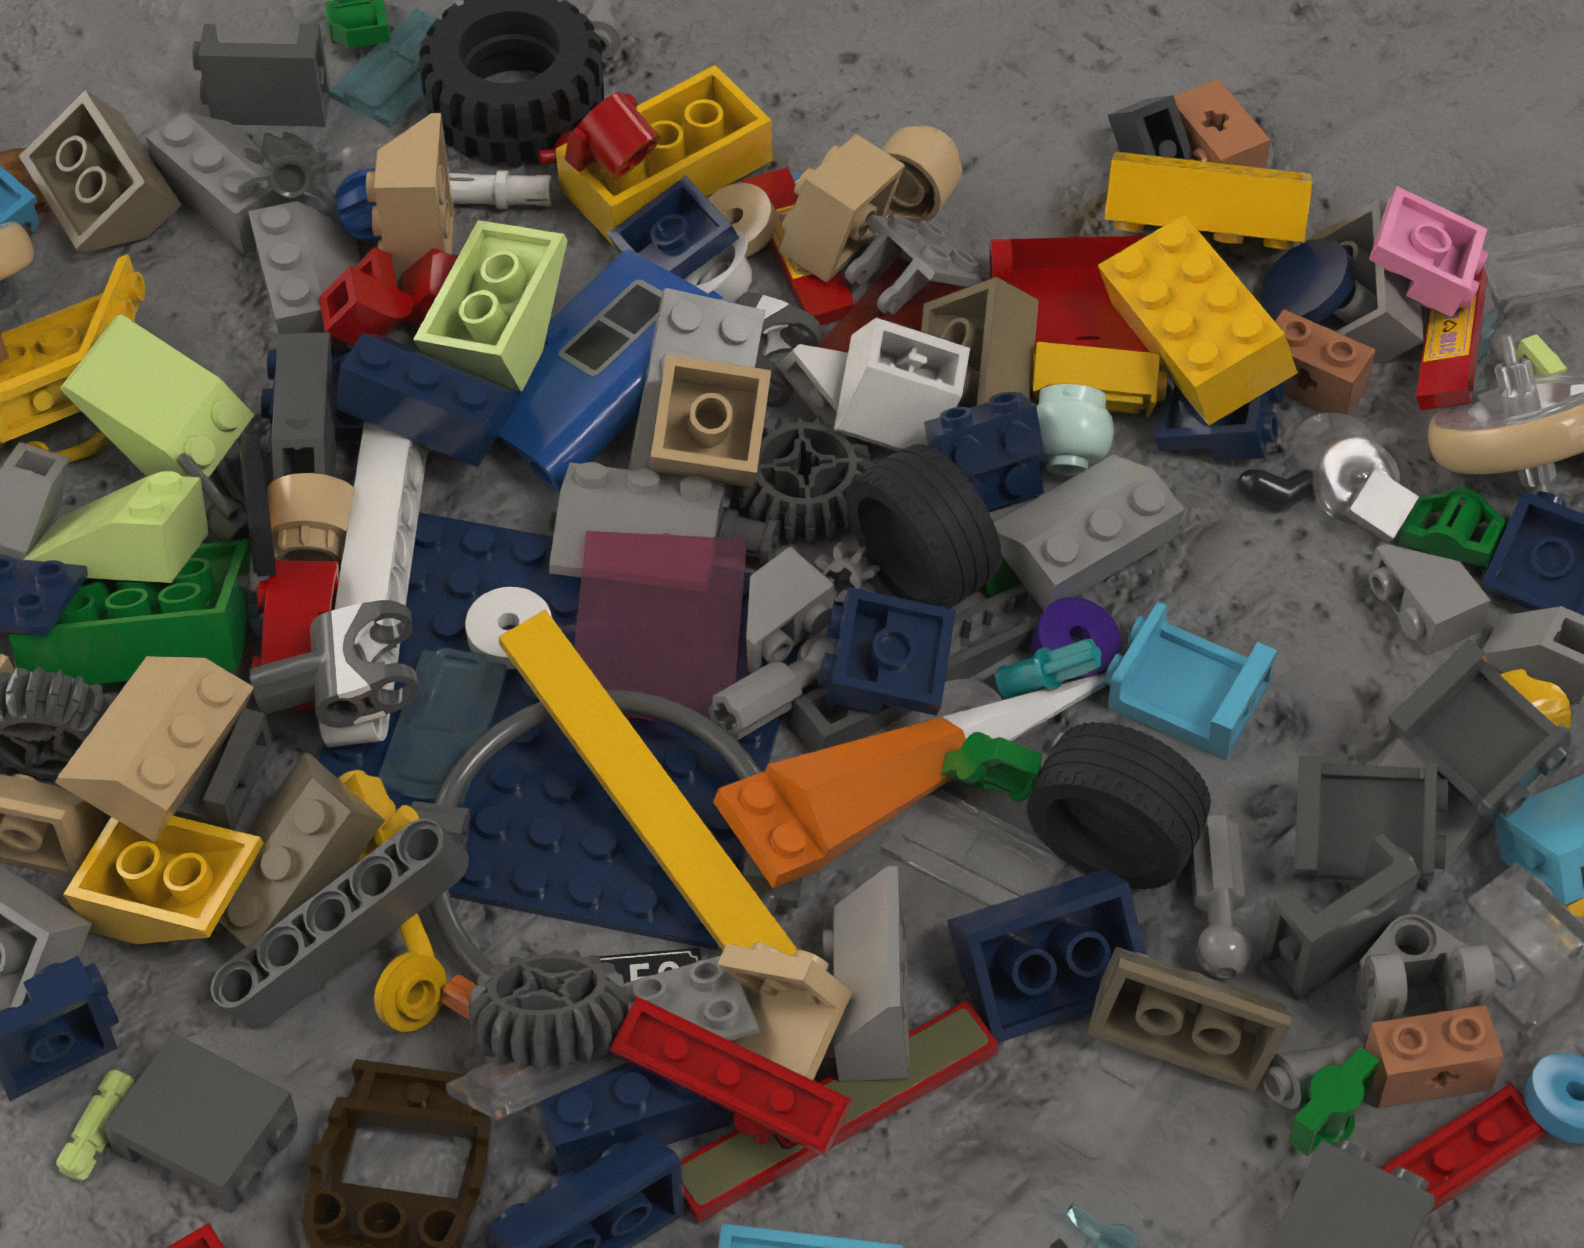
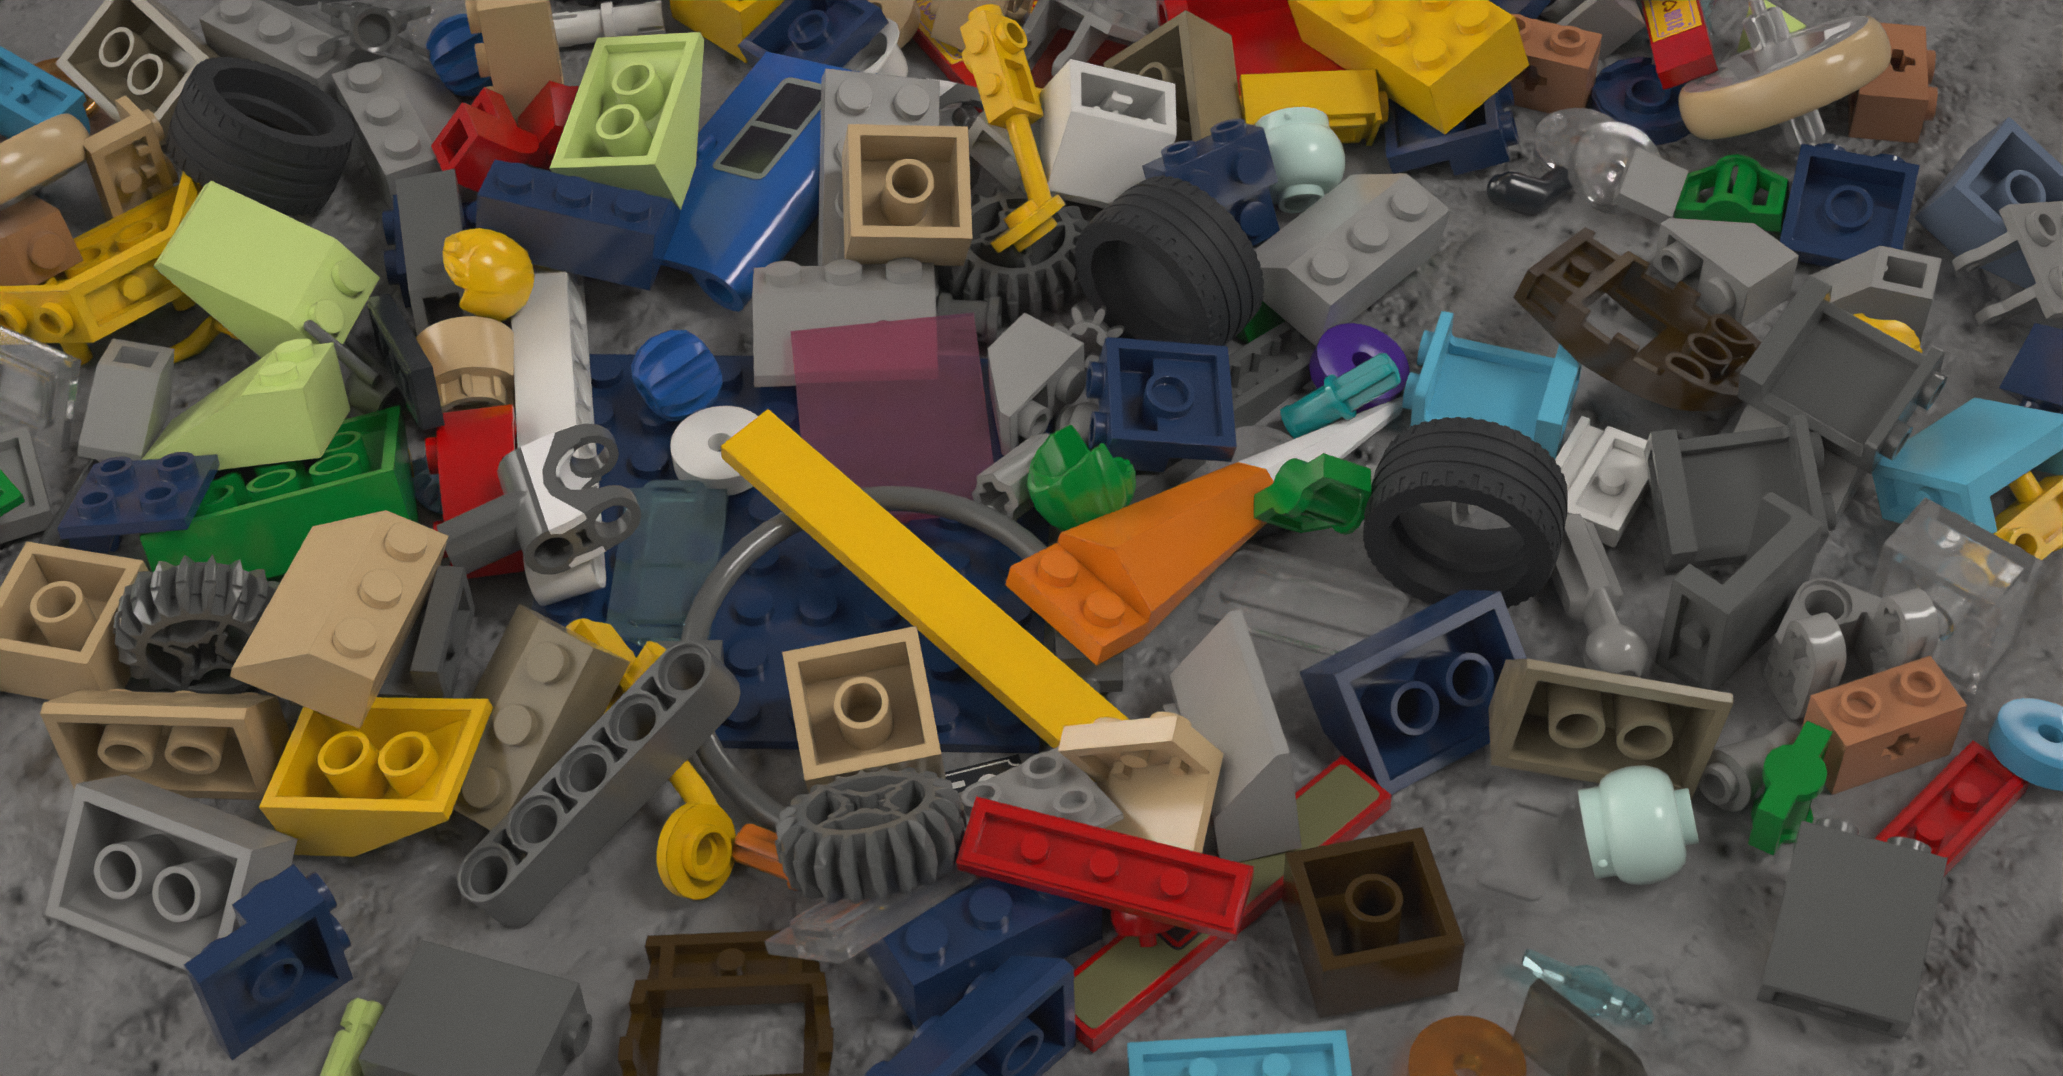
camera: 10 degrees left, 5 degrees down
(62, 269) = (129, 160): none -> tan bracket
(144, 258) = (260, 134): none -> black tyre
(341, 434) = (491, 271): none -> yellow hair
(483, 553) = (676, 375): none -> blue piece
(570, 895) = (862, 707): none -> tan brick
(794, 718) = (1076, 484): none -> green hair
(823, 343) = (1011, 102): none -> yellow piece
(947, 1157) = (1372, 922): none -> dark brown brick
(1193, 1111) = (1637, 825): none -> light aqua piece
(1255, 782) = (1604, 477): none -> white plate
(1357, 688) = (1685, 367): none -> dark brown slope
(1394, 415) = (1634, 96): none -> dark blue tile

